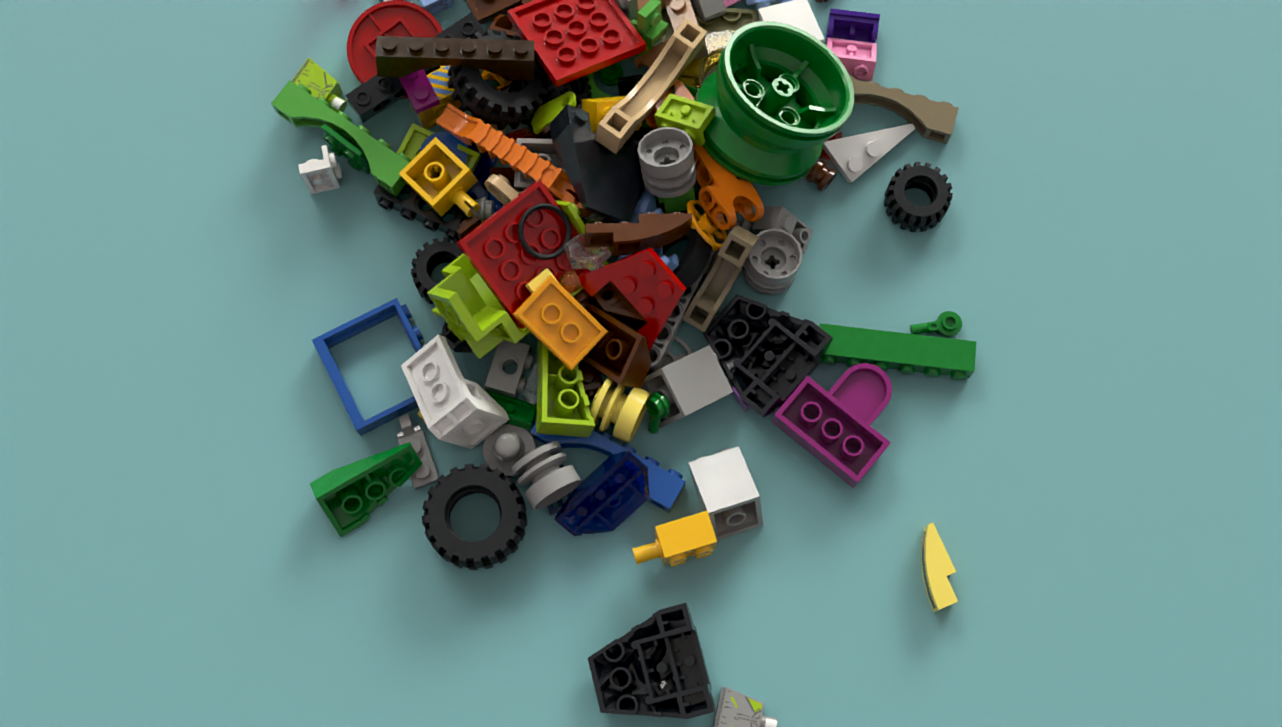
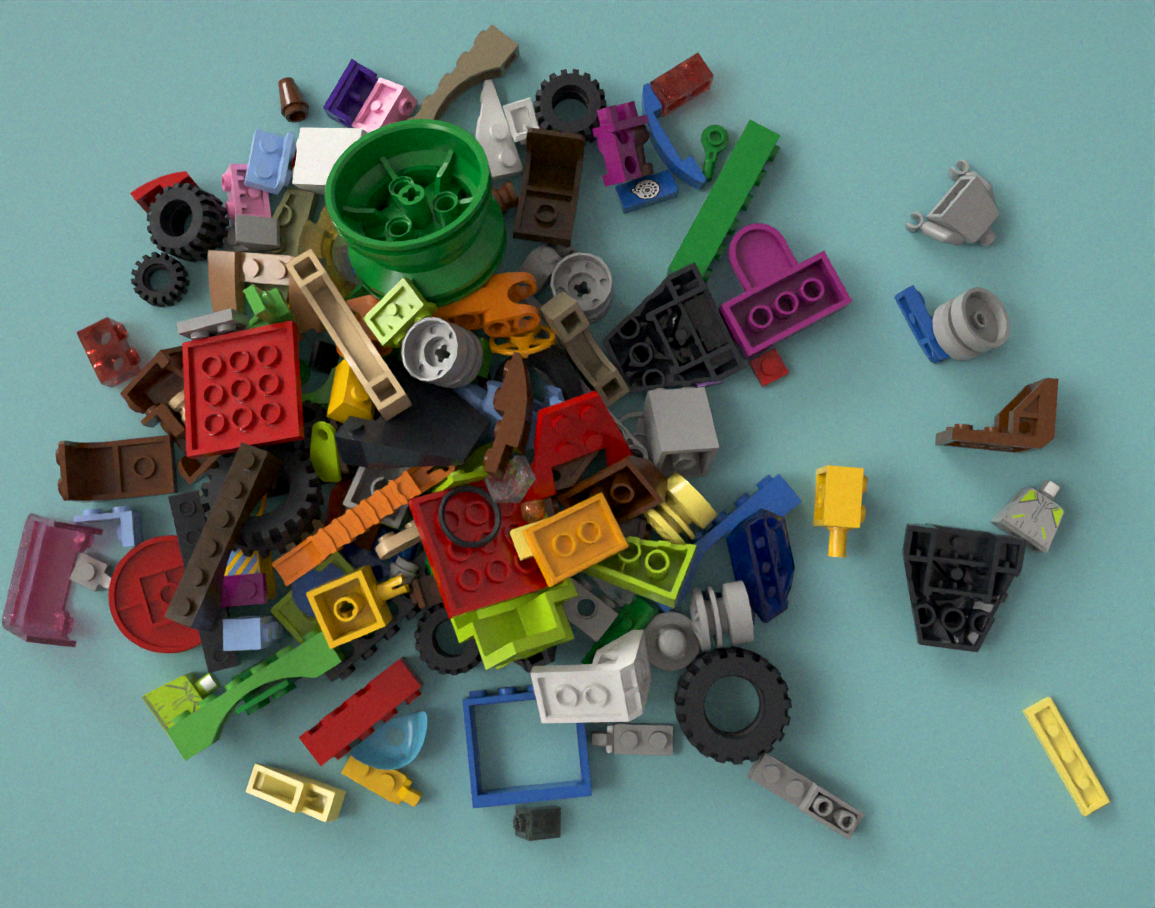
camera: 70 degrees left, 10 degrees up
(275, 203) = (296, 792): none -> light yellow slope
(310, 264) = (389, 784): none -> yellow hinge
(318, 400) = (537, 822): none -> clear smoke bracket
(321, 174) = (287, 732): white bracket -> none
(329, 256) = (379, 754): none -> medium azure piece
(358, 226) = (362, 711): none -> red wedge
(359, 487) = (652, 821): green wedge -> none
(389, 114) = (252, 632): none -> light blue arch
(422, 611) = (805, 795): none -> light grey slope
(657, 408) = (695, 472): green plate -> none
(727, 492) = (801, 436): slope -> none
(774, 443) = (768, 367): none -> red plate
(828, 673) = (1027, 417): none -> reddish brown bracket
(845, 205) = (549, 186): none -> dark brown bracket
(866, 560) = (920, 322): none -> blue hinge
(879, 286) = (646, 191): none -> blue slope
(883, 594) = (971, 324): none -> light grey wheel
(889, 163) = (520, 118): none -> white bracket
(907, 244) = (622, 142): none -> magenta hips
(935, 569) = (960, 262): light yellow slope -> none
(946, 263) = (685, 170): none -> blue slope
(980, 276) = (682, 83): none -> clear red brick
(980, 553) = (962, 212): none -> light grey torso

